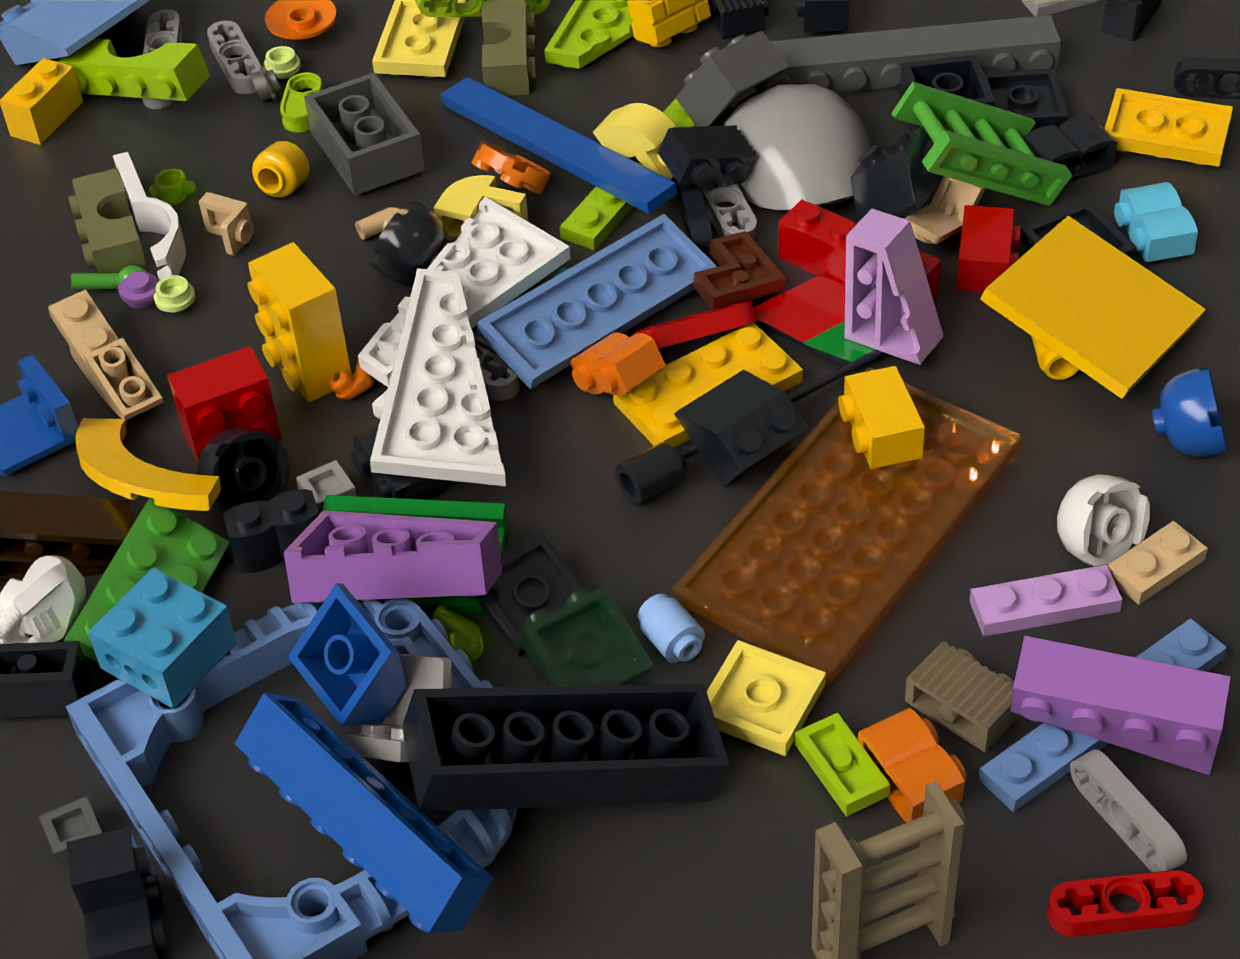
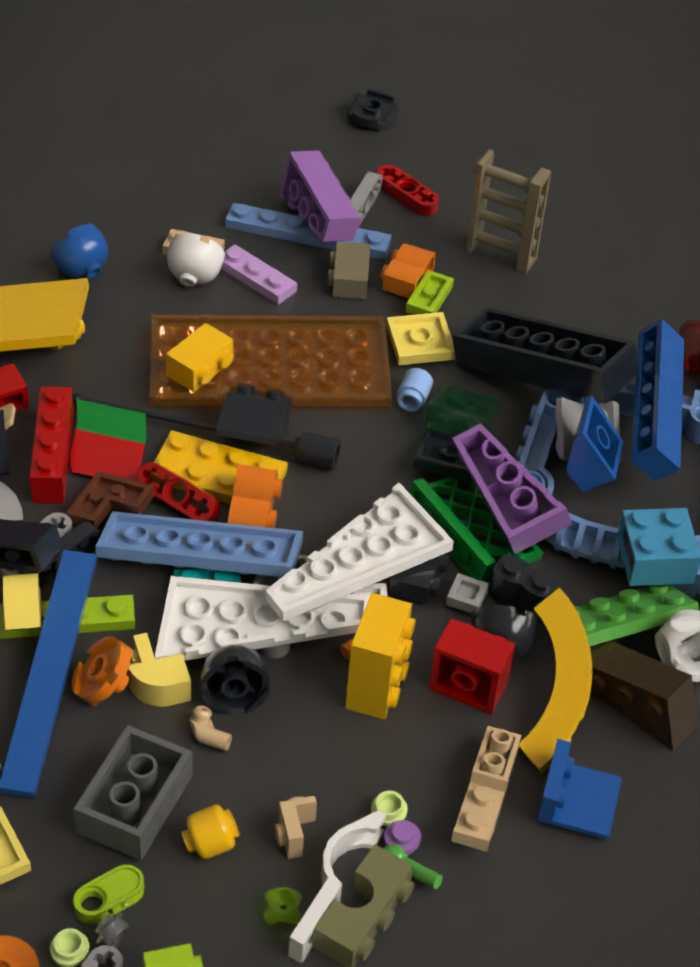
camera: 135 degrees left, 0 degrees up
(888, 289) = (100, 385): lavender wedge -> none

